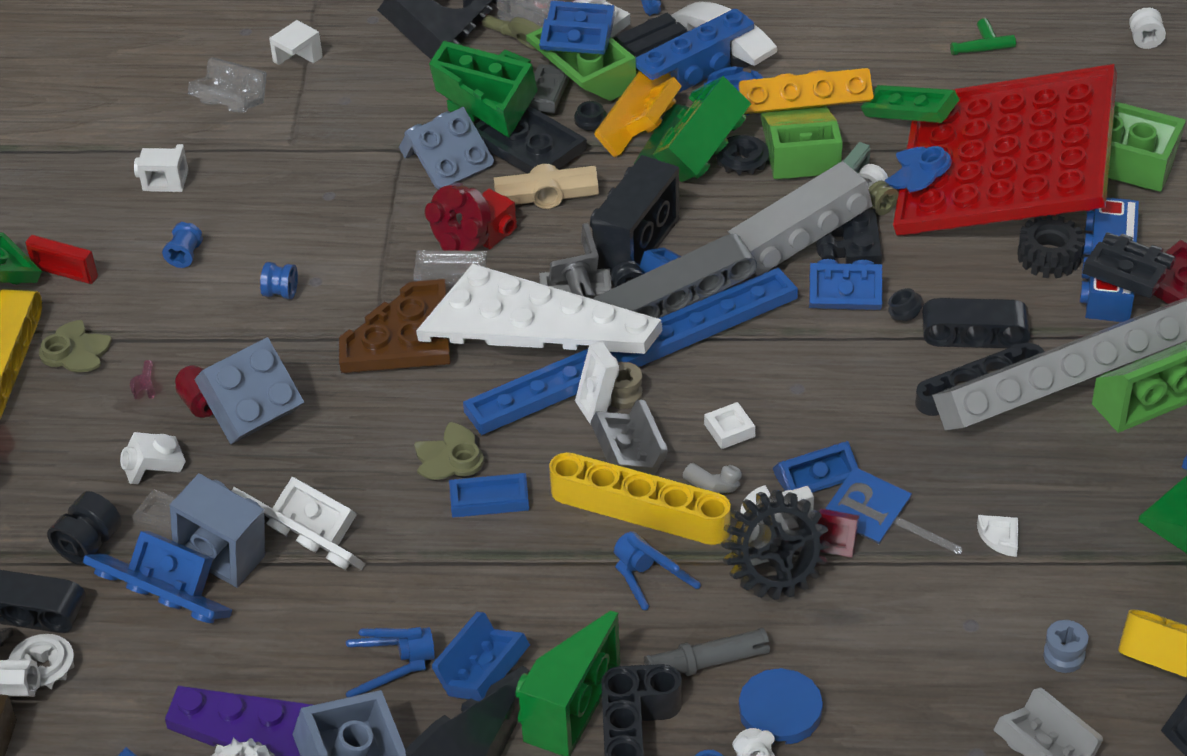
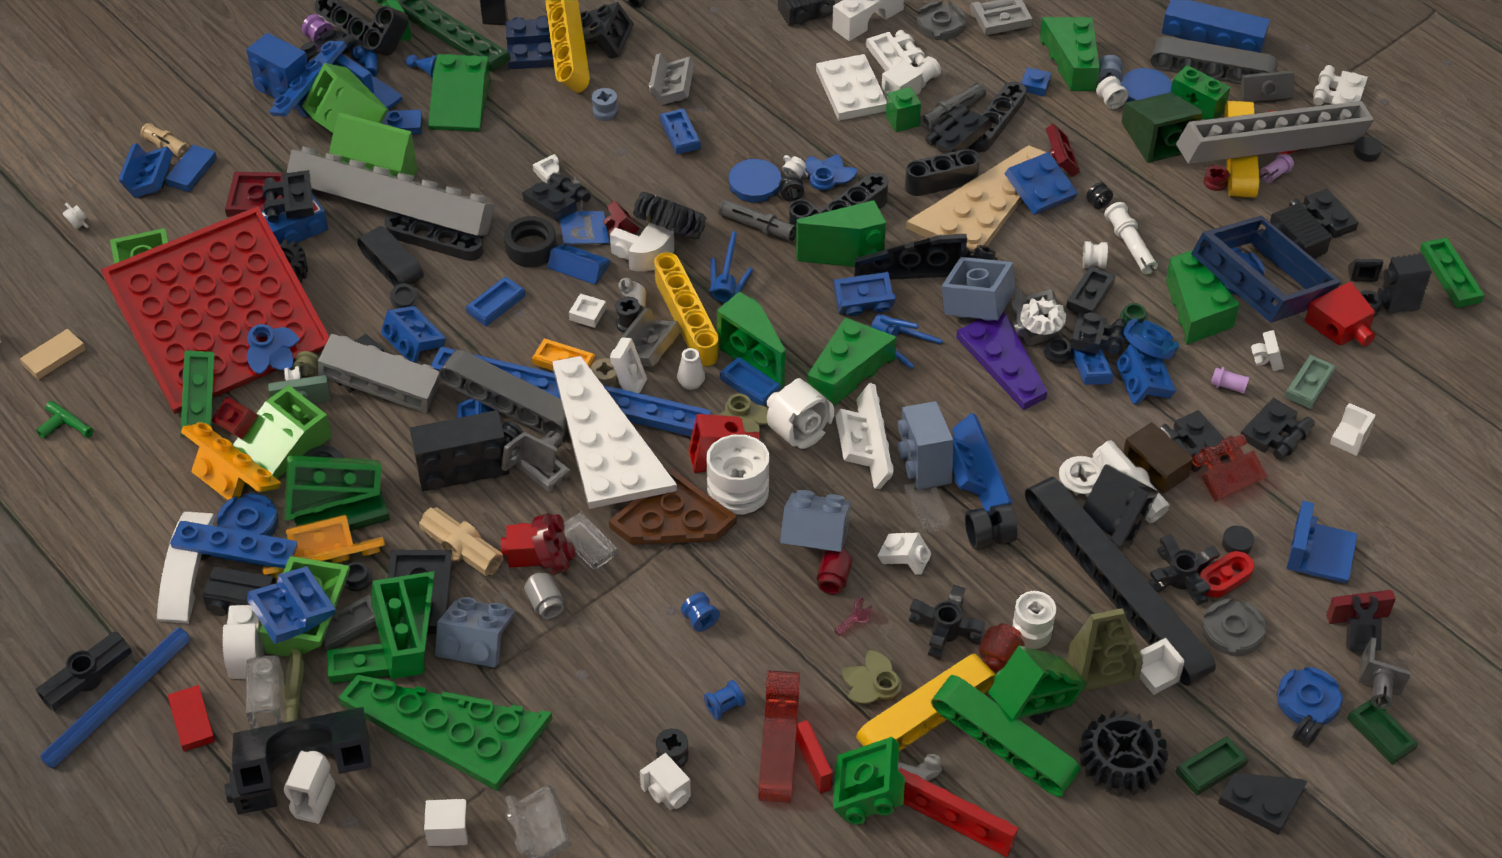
camera: 135 degrees left, 5 degrees up
(48, 426) = (946, 631): none -> black pin
(119, 258) = (779, 736): none -> clear red beam
(186, 191) = (679, 752): none -> black wheel
(357, 98) = (455, 728): none -> green wing
(372, 378) = (738, 473): none -> white wheel
(385, 472) = (799, 414): none -> white brick
(409, 575) = (850, 358): none -> green wedge
(414, 198) = (544, 595): none -> light grey brick
(429, 395) = (708, 430): none -> red torso
(514, 499) = (748, 334): none -> green slope
(548, 441) = (690, 371): none -> white cone
(682, 370) = (553, 351): none -> light orange plate
(683, 446) = (628, 311): none -> black bush
(722, 721) = (785, 187): none -> black bush
(829, 375) = (495, 301): none -> blue tile
(854, 116) = (234, 417): none -> dark red plate
(885, 419) = (529, 227): none -> black tyre
(939, 494) = (551, 198): none -> black plate
(940, 687) = (680, 131): none -> blue plate
(1080, 55) = (52, 354): none -> tan tile

